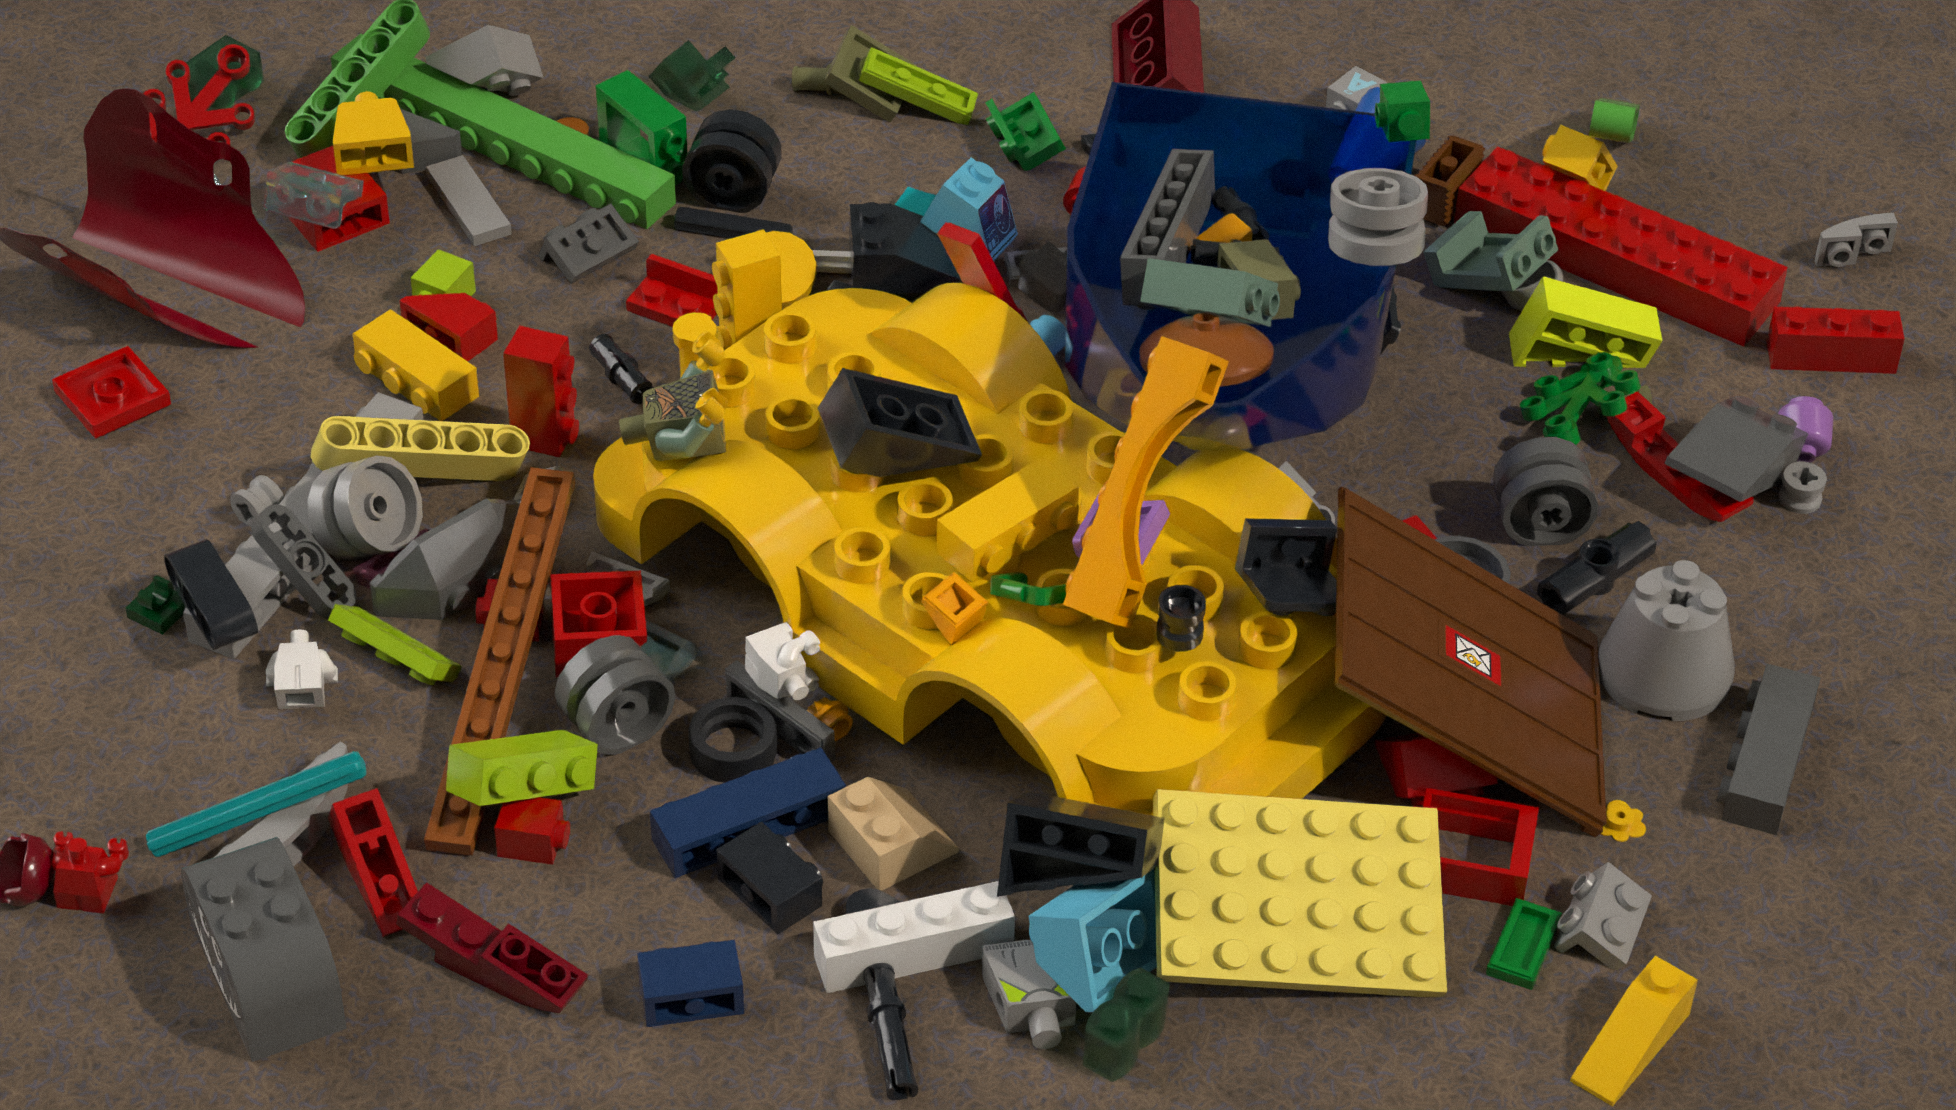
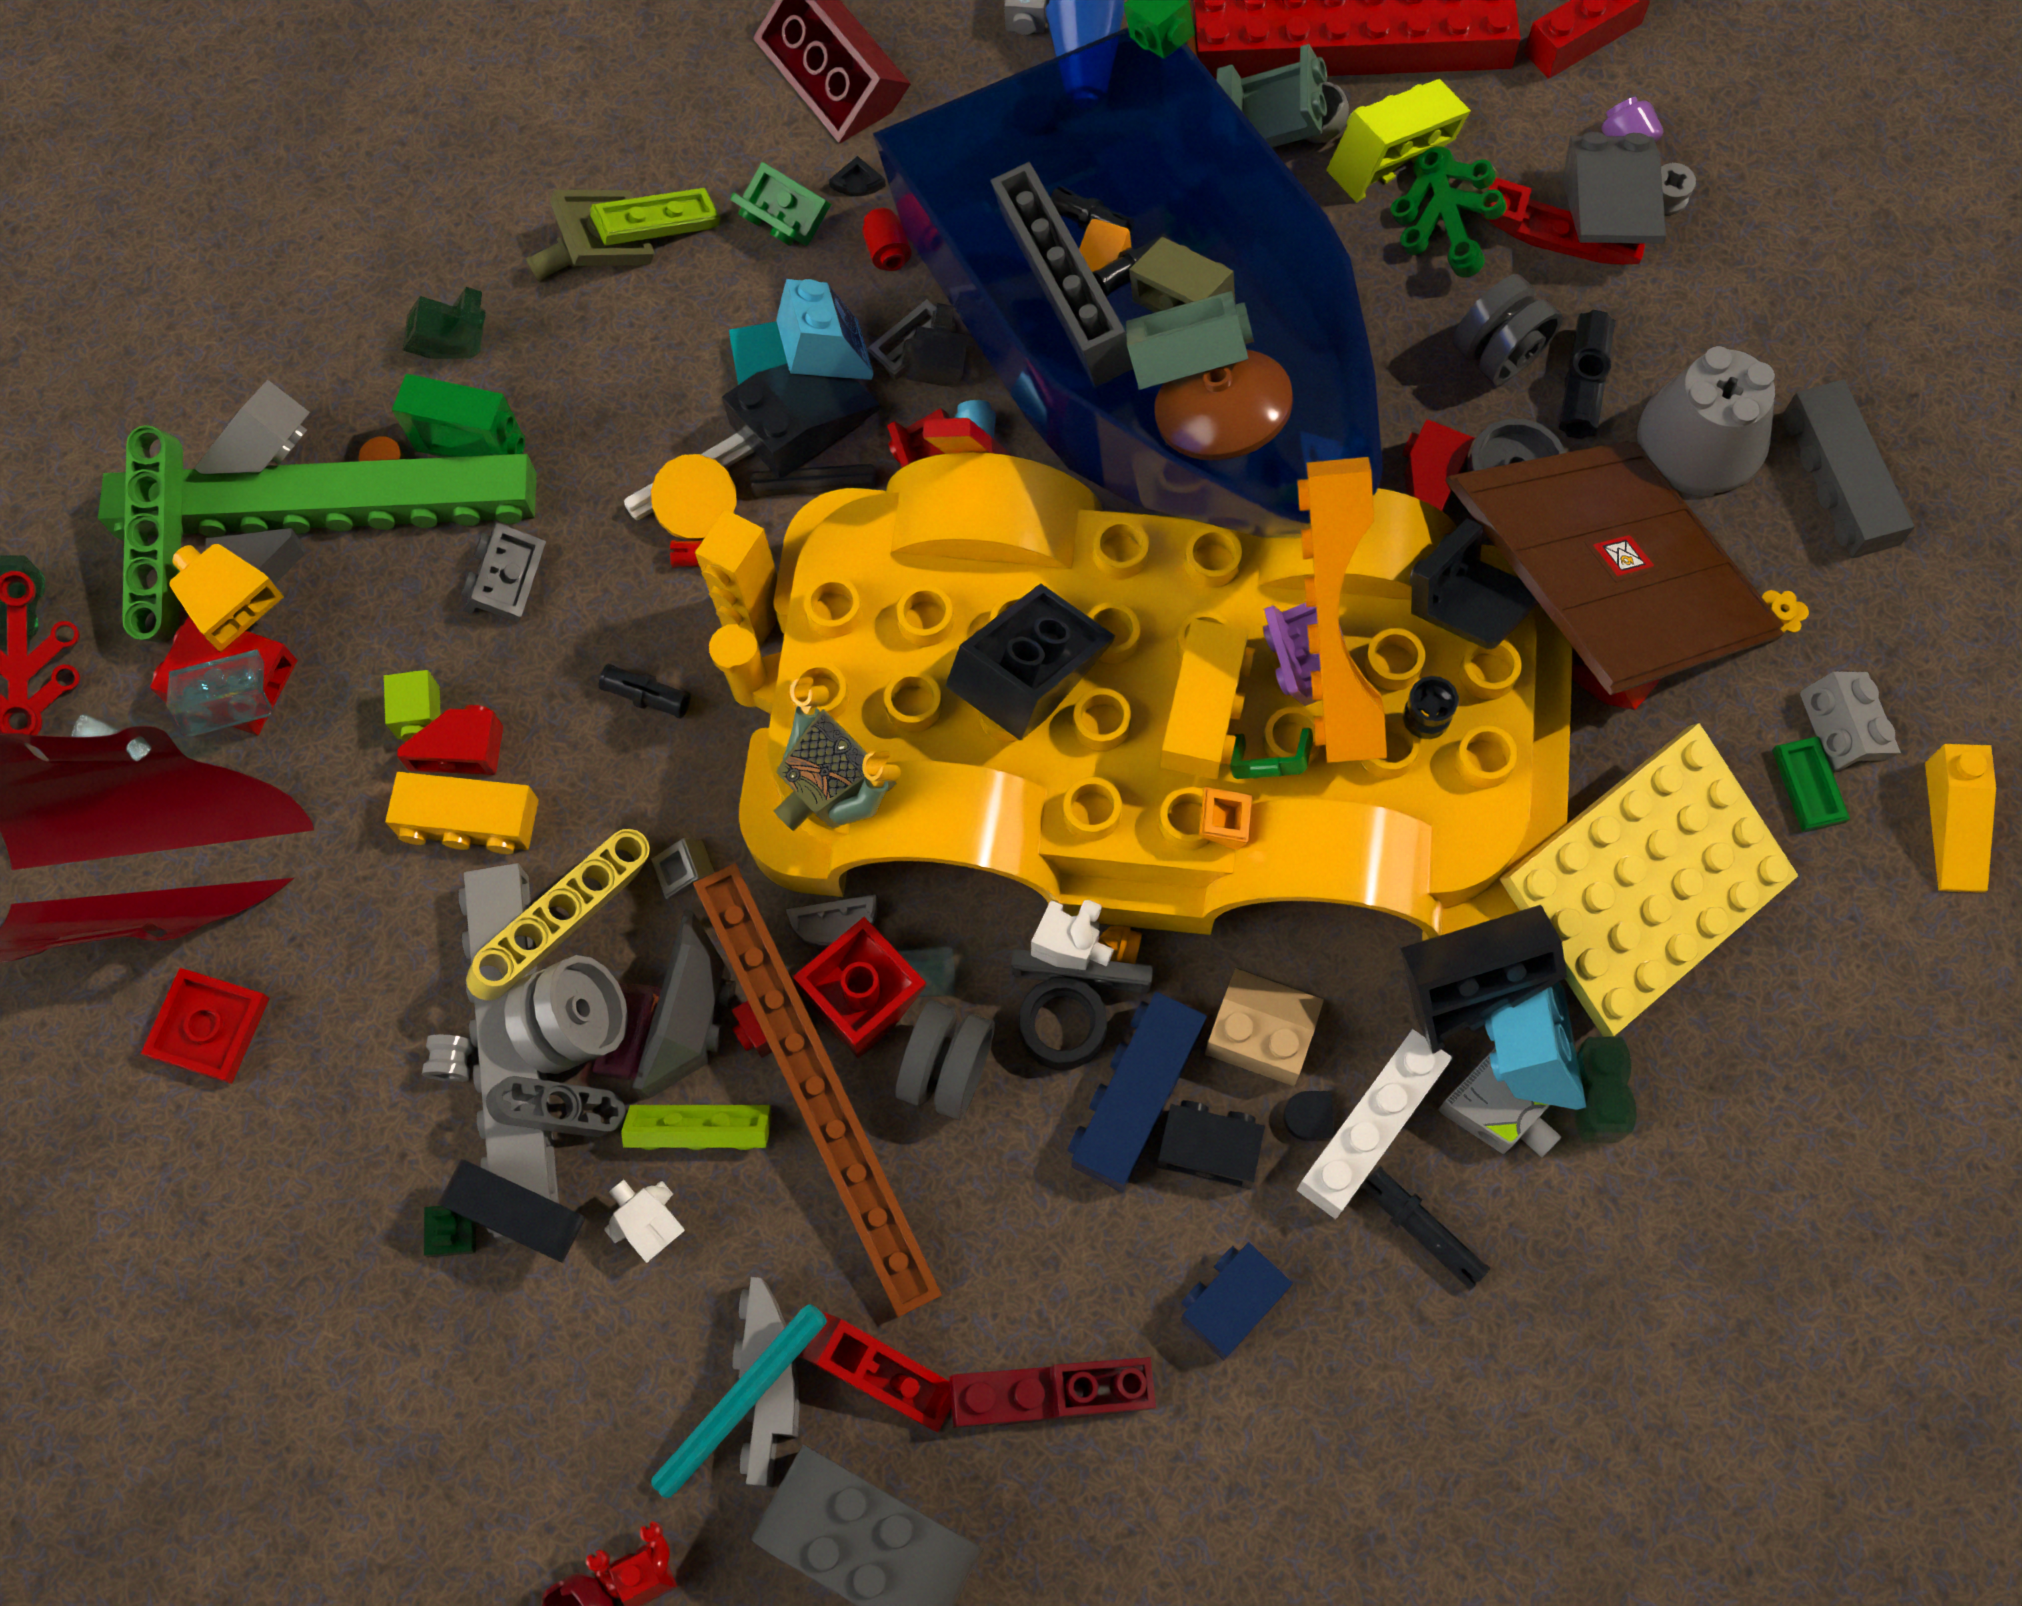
camera: 30 degrees left, 25 degrees up
(468, 200) = (351, 590): light grey tile -> none
(521, 767) = (935, 1198): lime brick -> none
(531, 830) = (978, 1238): red brick -> none
(541, 389) = (620, 782): red brick -> none
(672, 291) = (627, 580): red bracket -> none
(723, 224) = (611, 469): black axle -> none
(732, 161) = (567, 406): black wheel -> none
(1377, 216) = (1279, 171): light grey wheel -> none
(1489, 820) = (1745, 692): red window -> none

